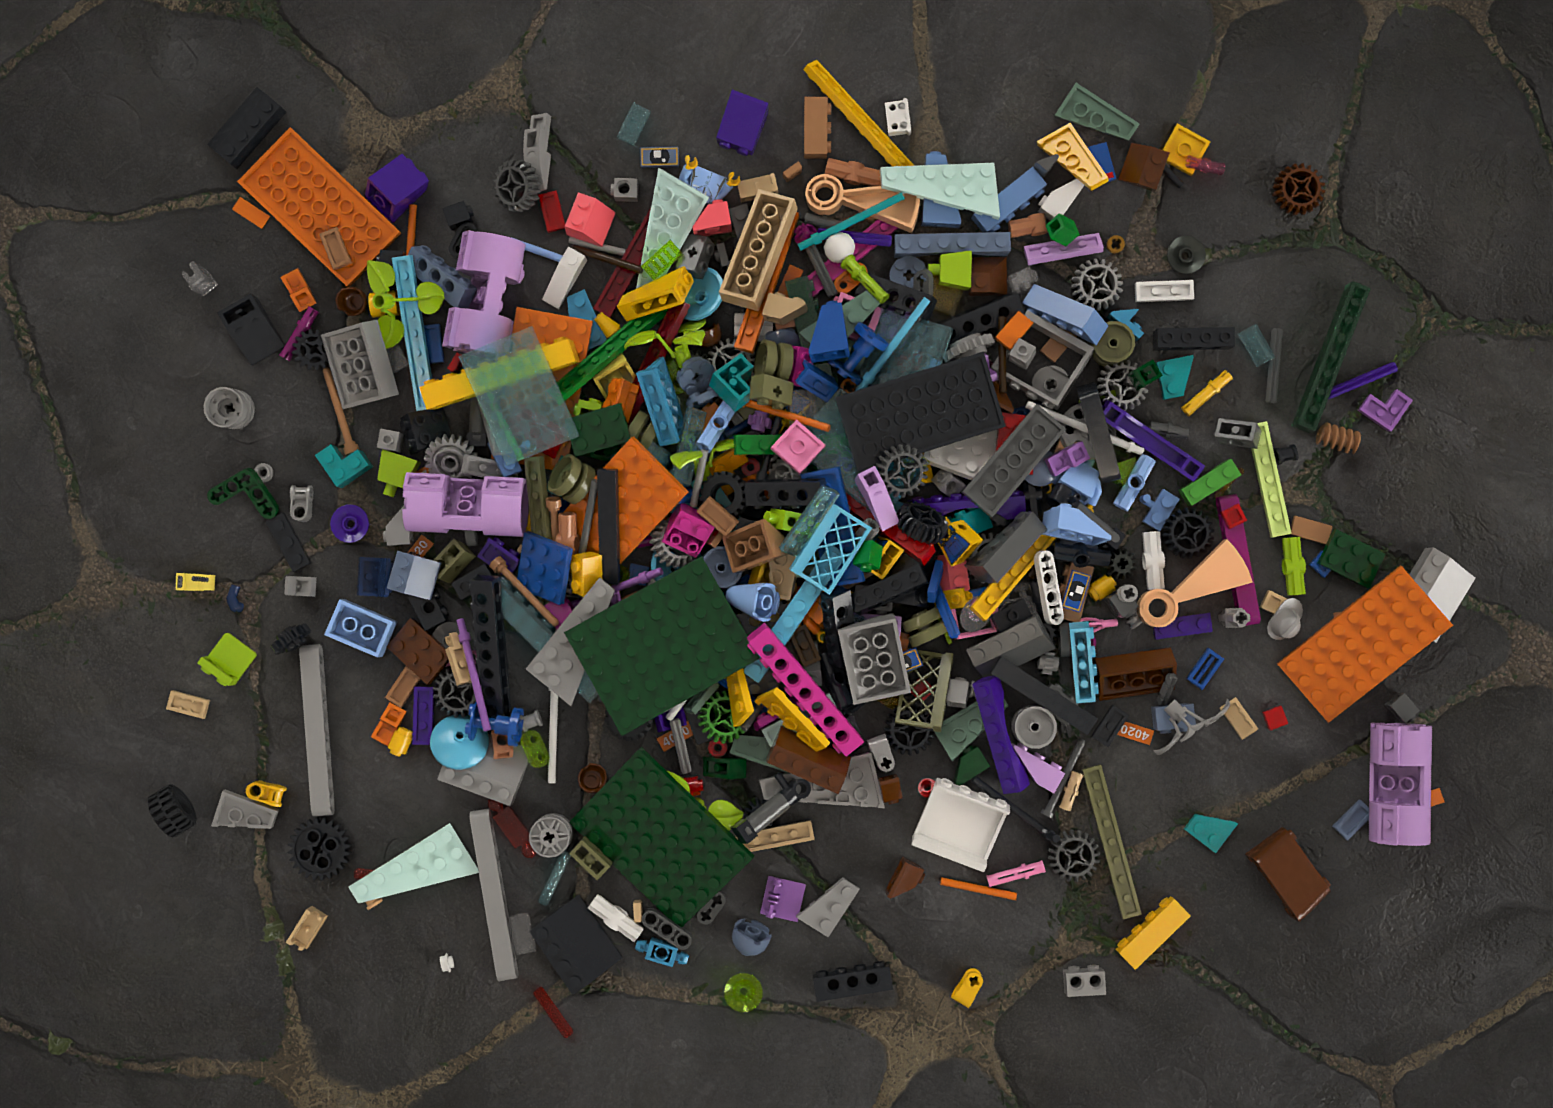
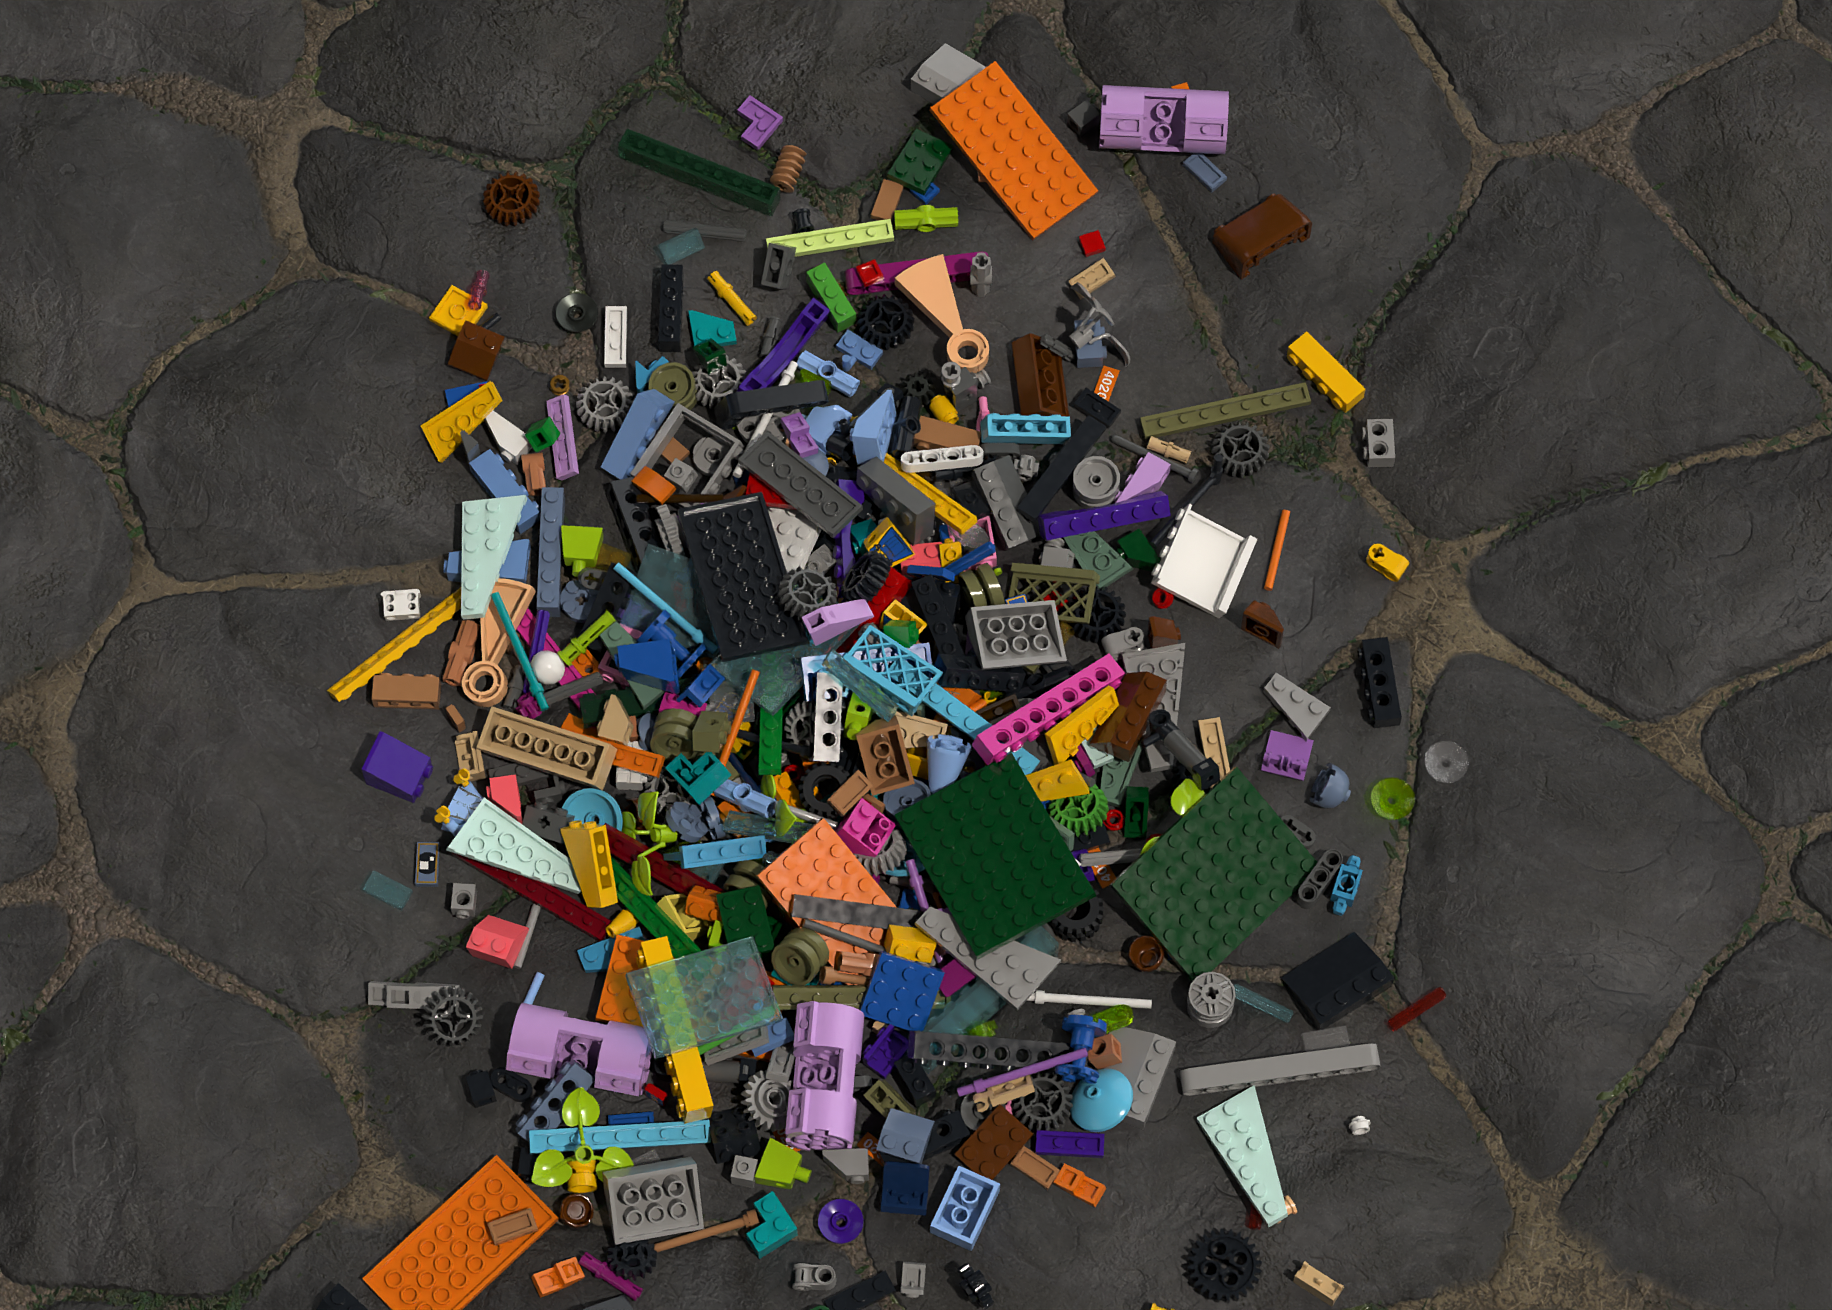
camera: 85 degrees left, 20 degrees down
(316, 730) = (1084, 1266): light grey beam -> none
(395, 187) = (444, 1156): dark purple slope -> none
(400, 741) = (1099, 1169): yellow brick -> none
(411, 227) = (494, 1145): orange bar -> none
(499, 565) = (898, 1046): medium nougat piece -> none
(512, 827) = (1202, 1047): clear red plate -> none
(514, 638) = (985, 1029): none -> clear neon green plate
(552, 211) = (484, 984): red tile -> none
(564, 277) = (562, 971): white slope -> none
(591, 858) = (1237, 956): olive brick -> none
(608, 259) = (544, 921): dark brown bar -> none
(615, 918) = (1307, 935): white piece -> none
(638, 910) = (1299, 910): tan tile -> none
(647, 268) = (550, 867): clear neon green slope -> none
(759, 421) = (742, 755): medium lavender gear -> none
(784, 1048) = (1446, 752): none -> clear dish
(798, 447) = (775, 704): bright pink tile -> none
(988, 276) = (589, 513): reddish brown slope -> none
(1022, 280) = (595, 480): clear brick -> none
(1037, 867) = (1254, 487): bright pink pin -> none
(1075, 591) = (946, 432): tile -> none
(1094, 113) = (410, 402): sand green wing -> none
(1153, 560) = (914, 357): white piece -> none
(1185, 626) = (988, 325): dark purple plate -> none
(1195, 681) = (1050, 321): blue tile -> none
(1210, 830) = (1215, 312): teal wing -> none
(1272, 602) = (966, 240): tan plate -> none
(1286, 620) = (986, 226): light grey piece -> none
(1363, 379) = (723, 140): dark purple axle -> none

